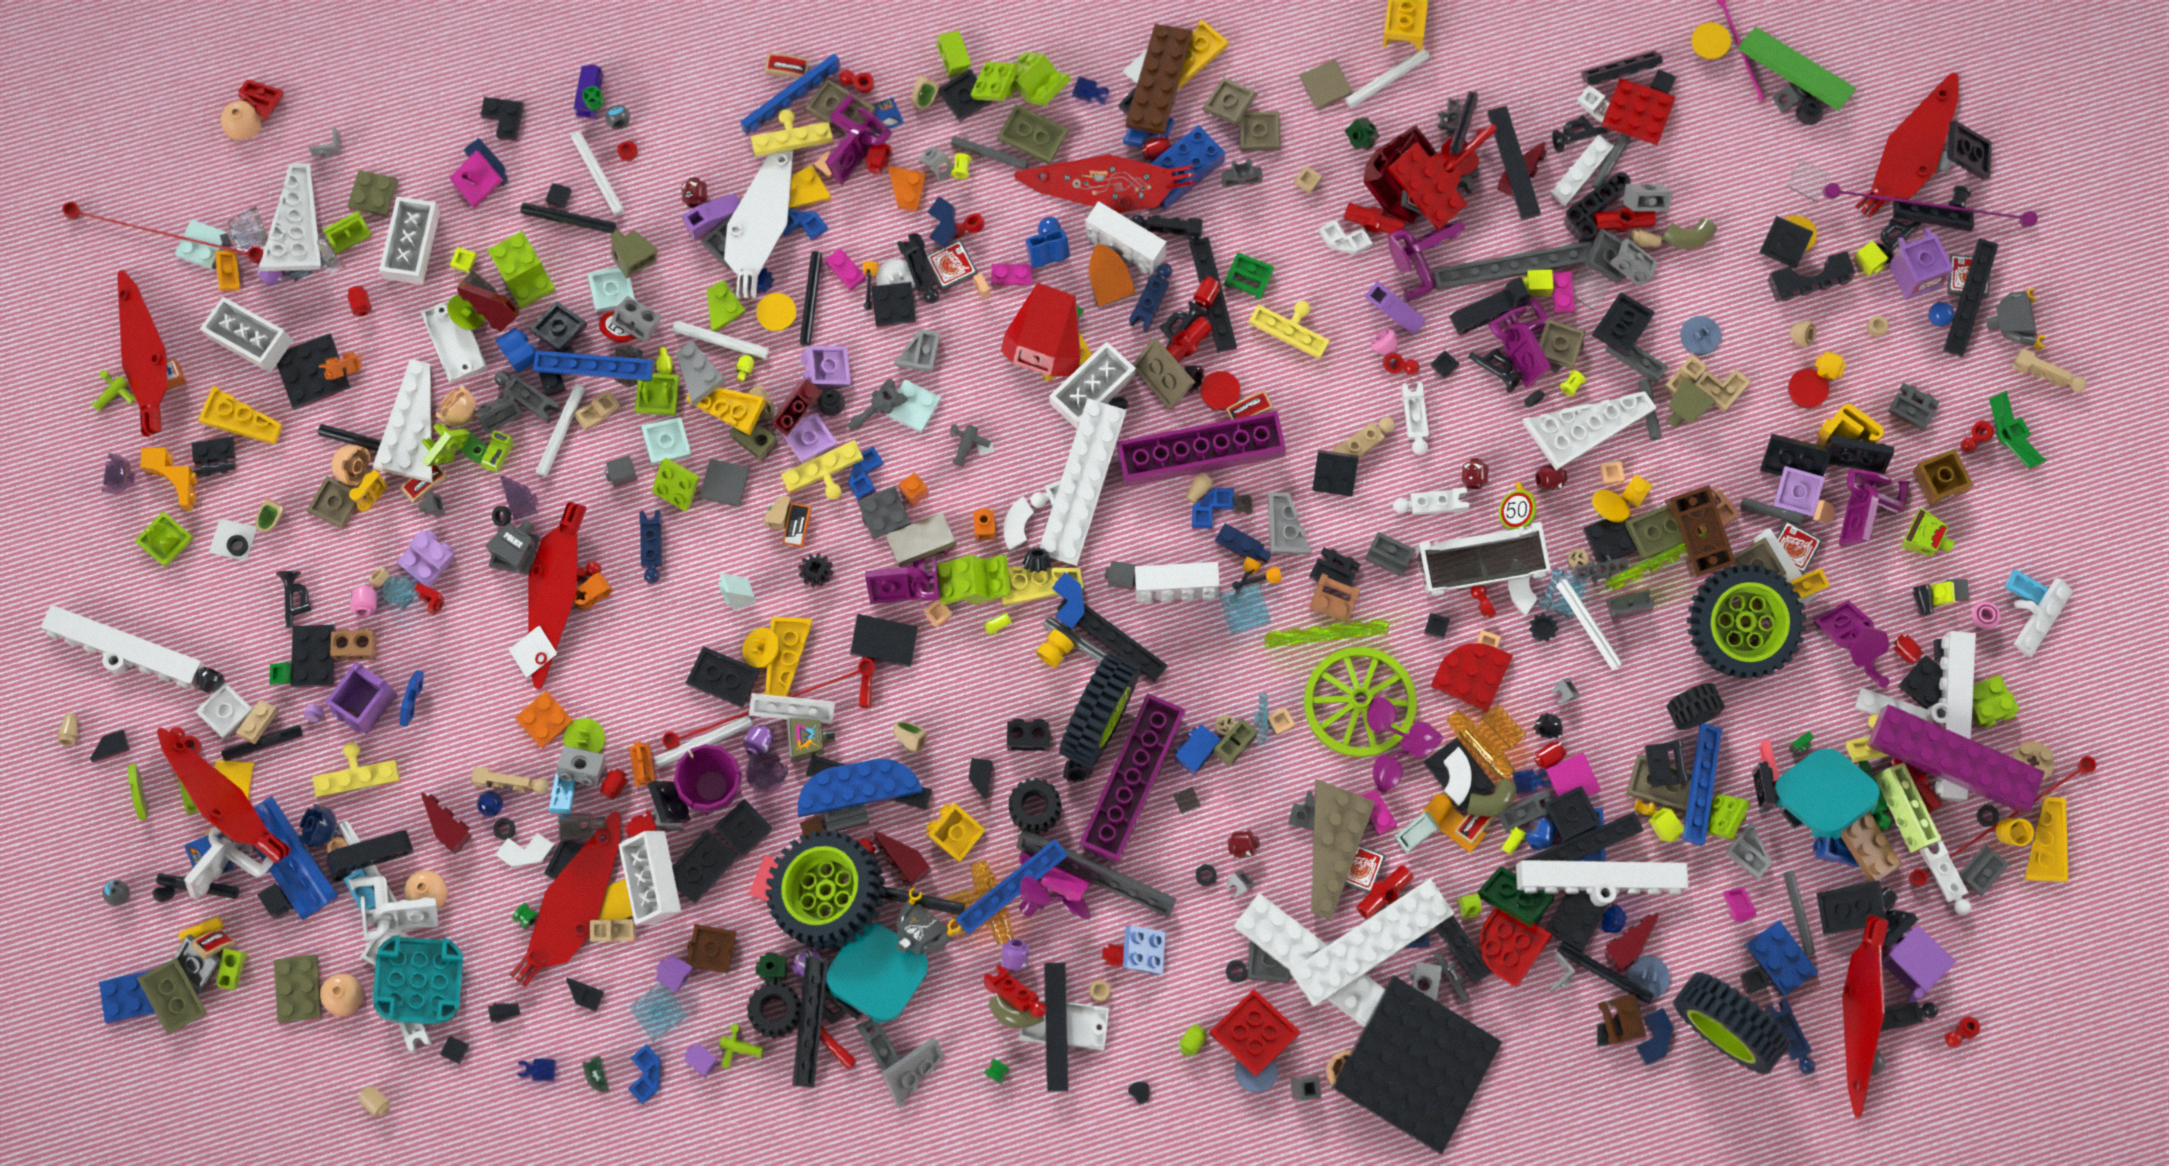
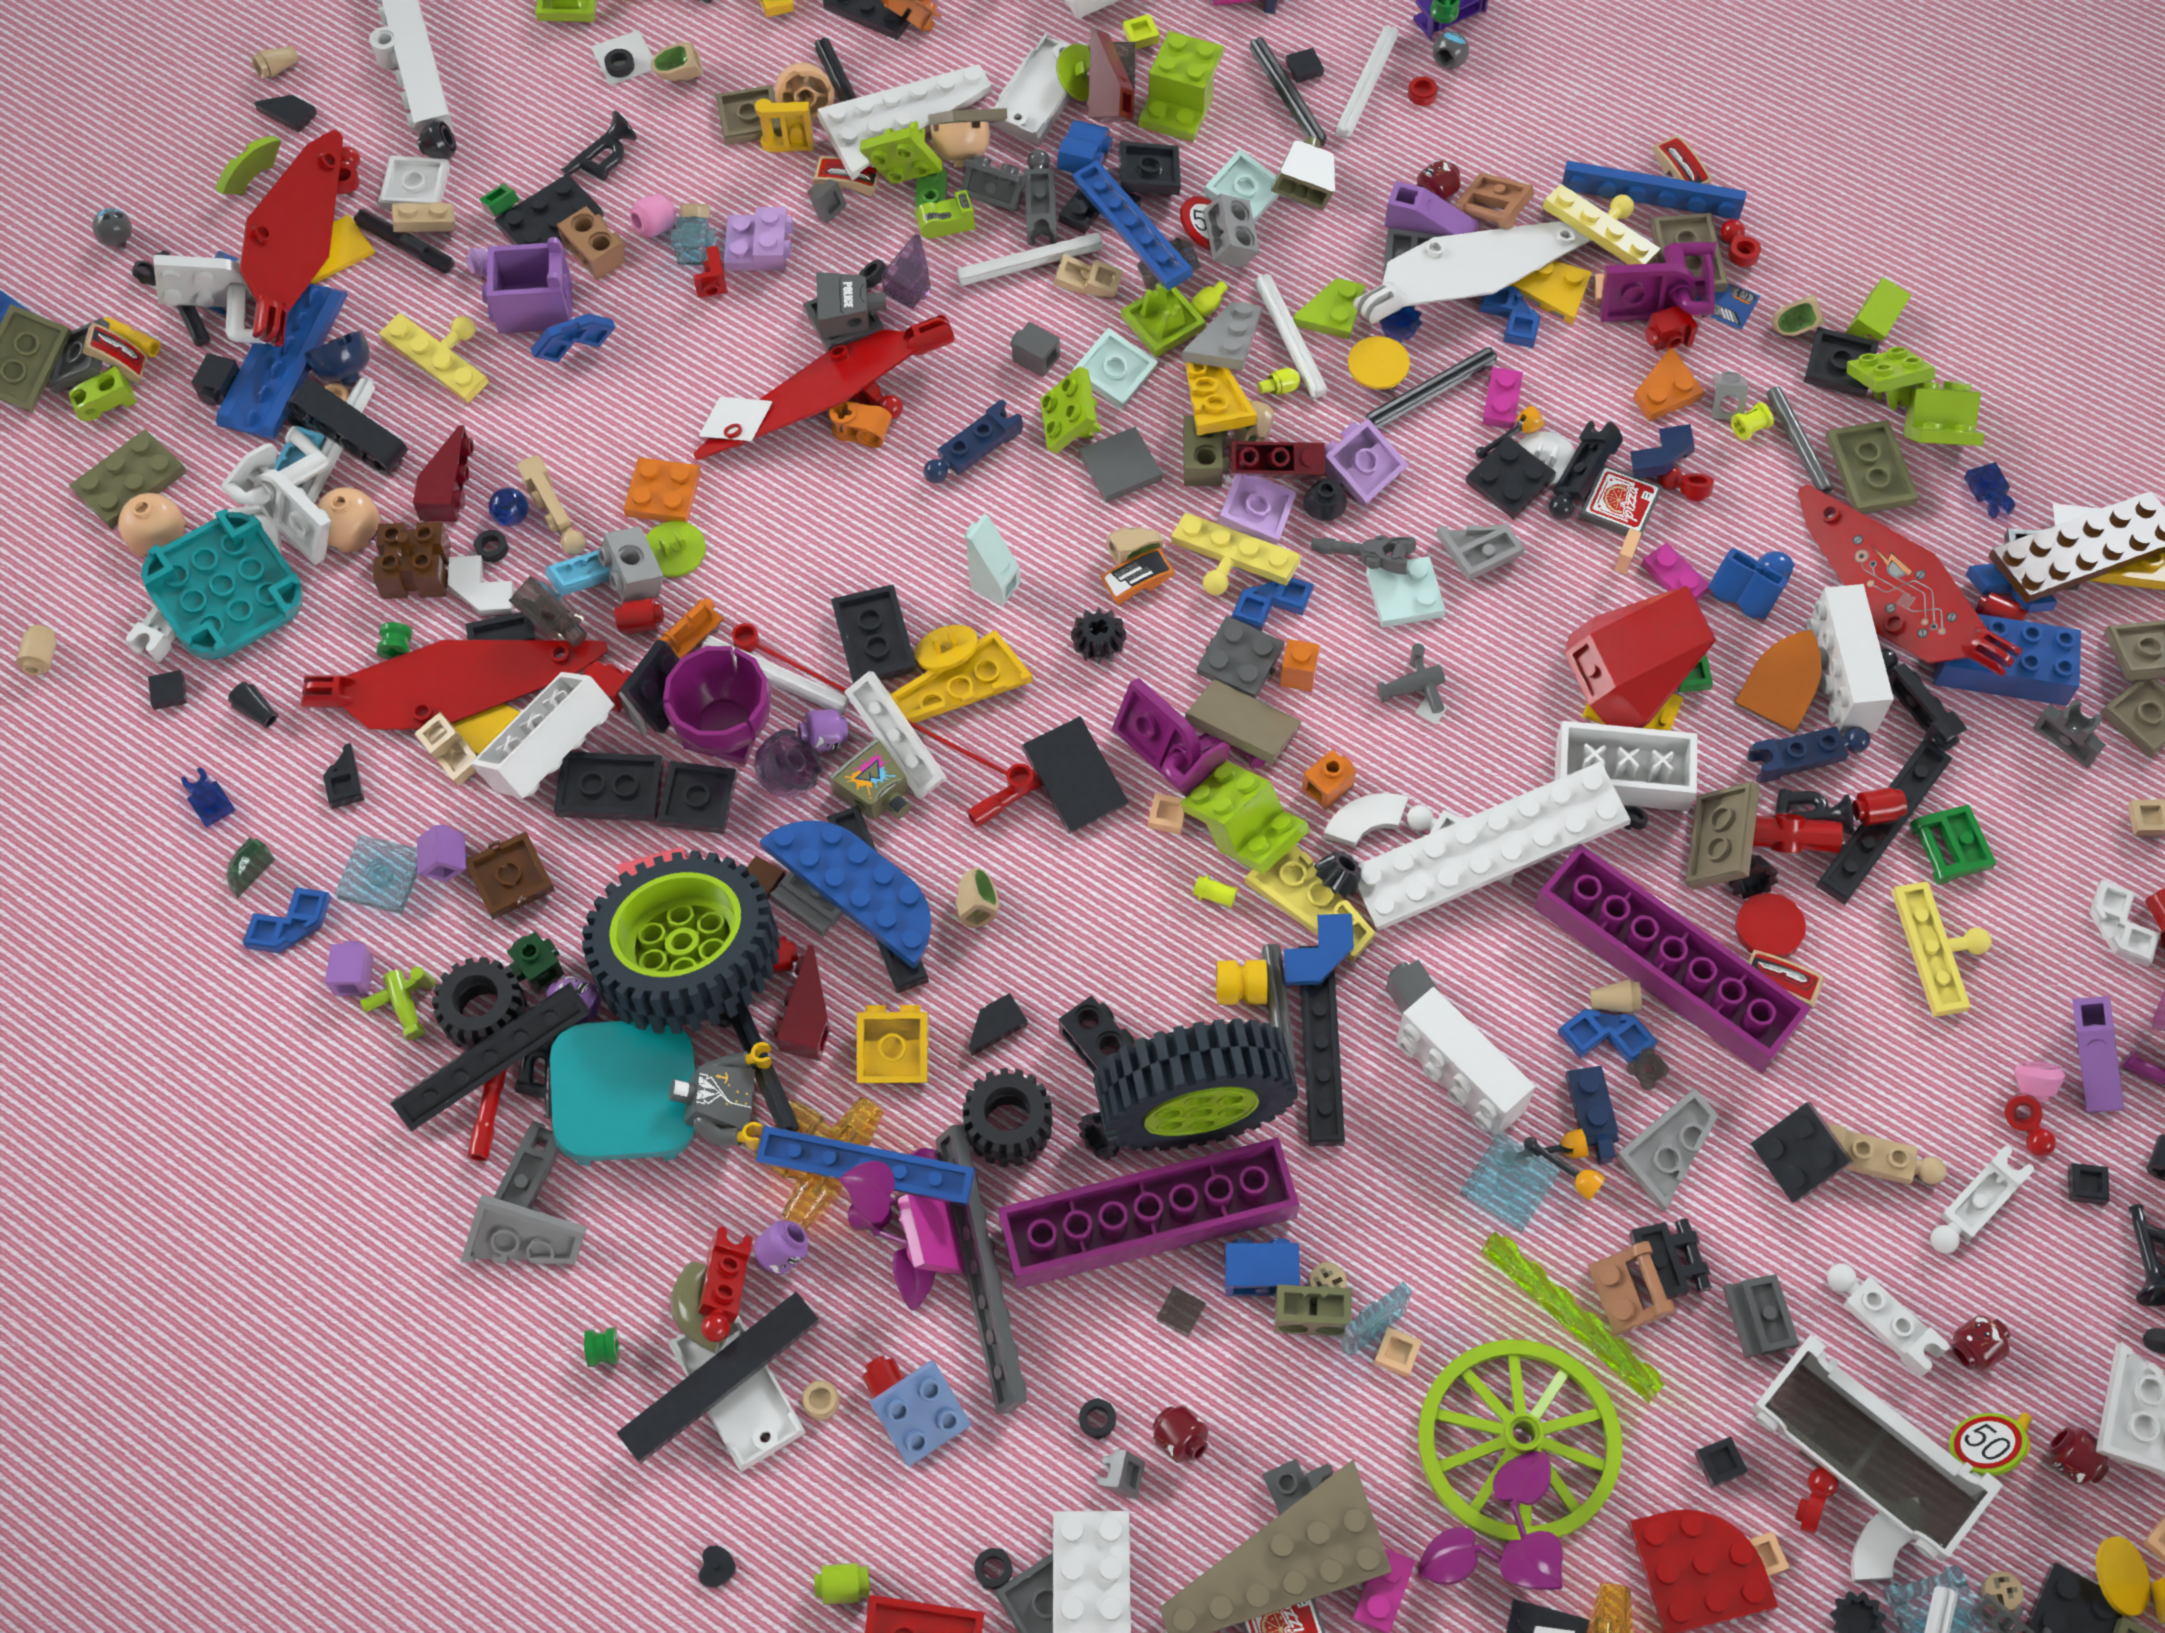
camera: 50 degrees right, 10 degrees down
(448, 393) = (974, 116): none -> dark tan tile
(483, 874) = (412, 560): none -> reddish brown brick
(726, 170) = (1498, 193): none -> nougat plate

